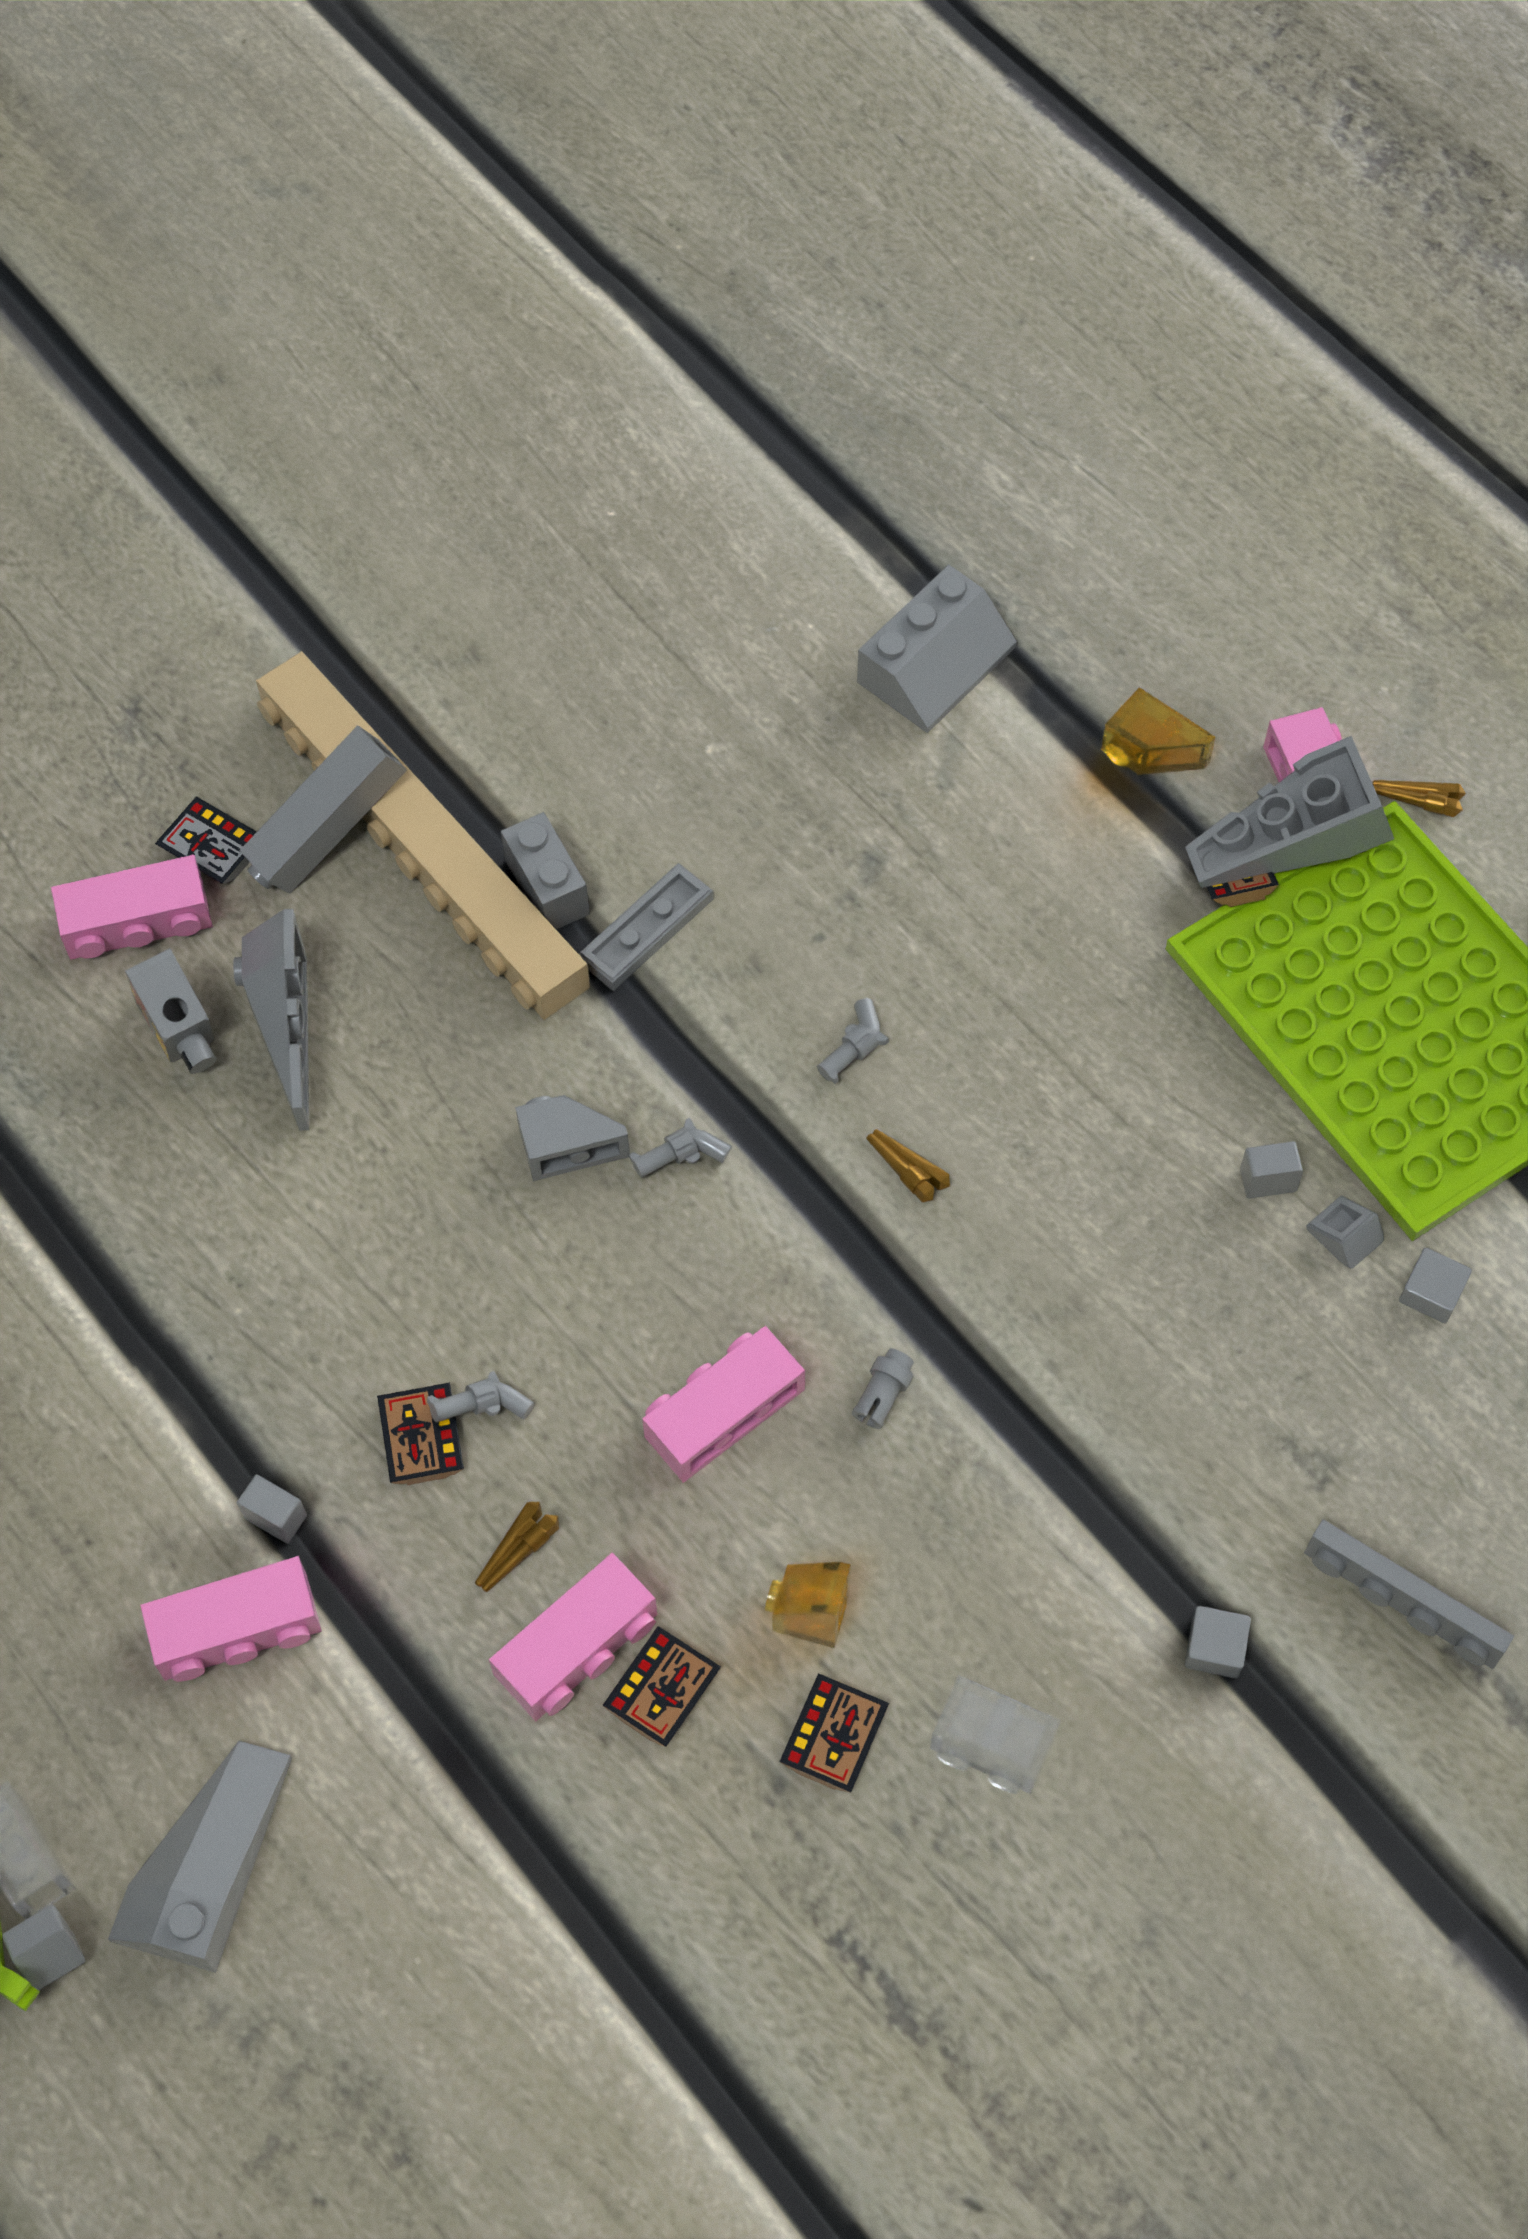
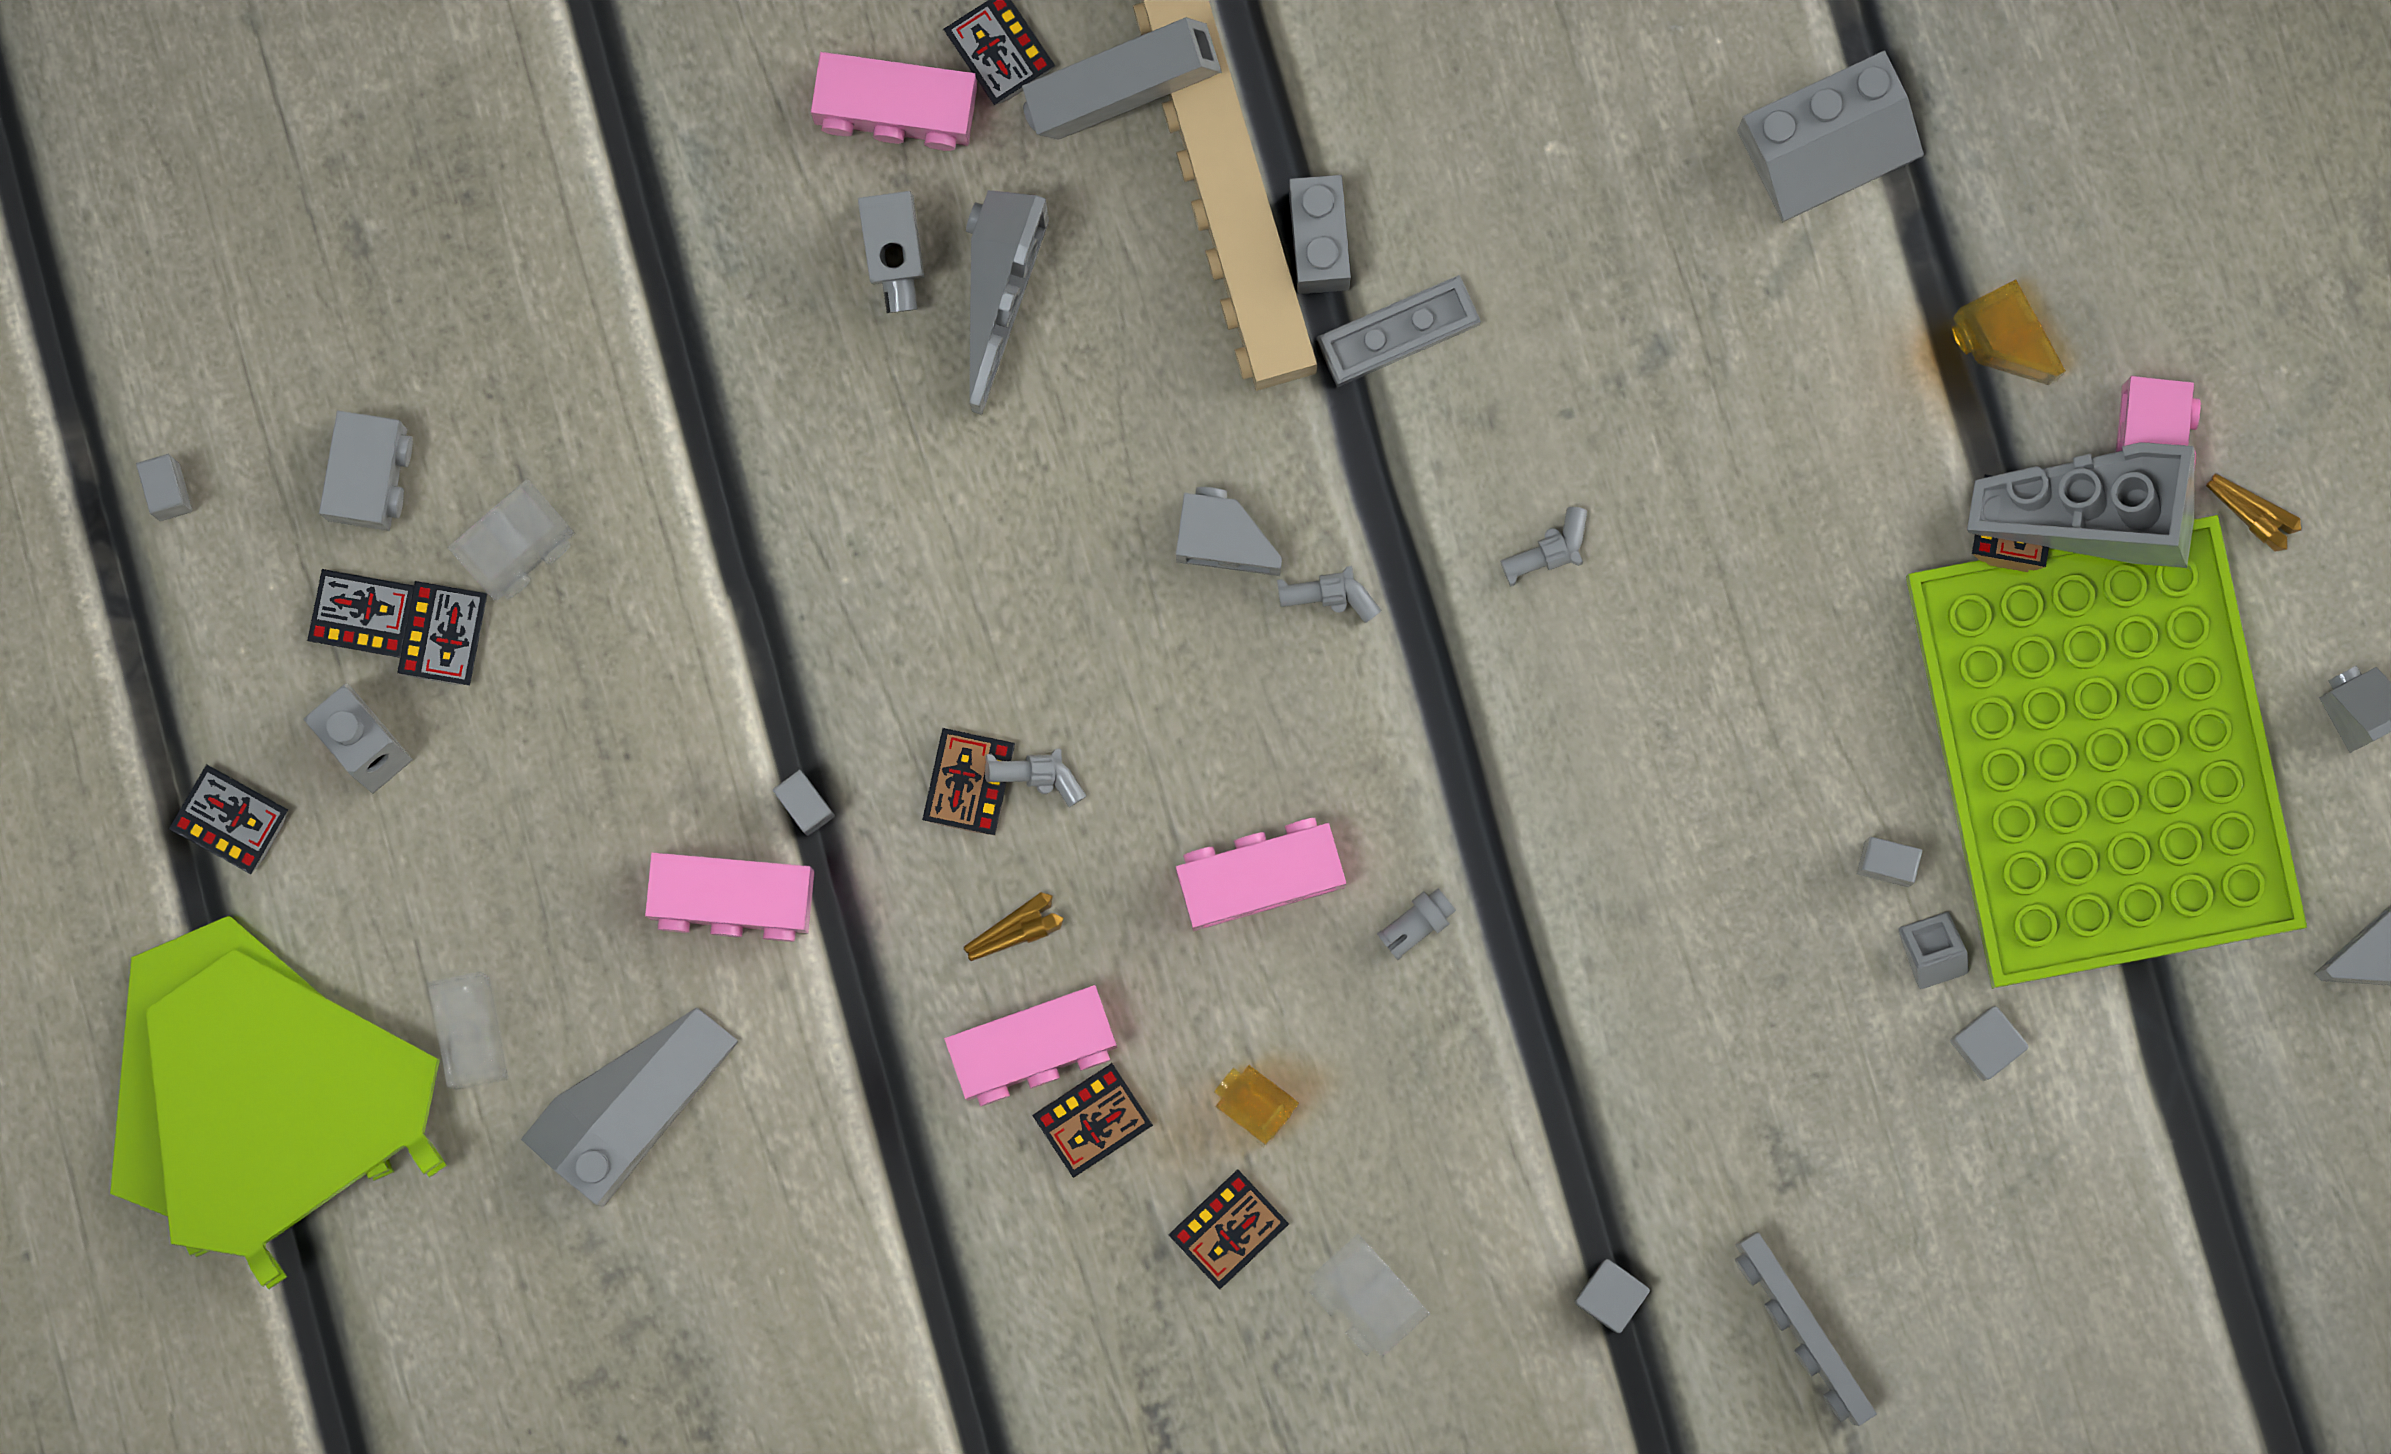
camera: 25 degrees right, 20 degrees up
(43, 1947) = (463, 1128): light grey piece -> none
(912, 1169) = (1545, 705): pearl gold piece -> none

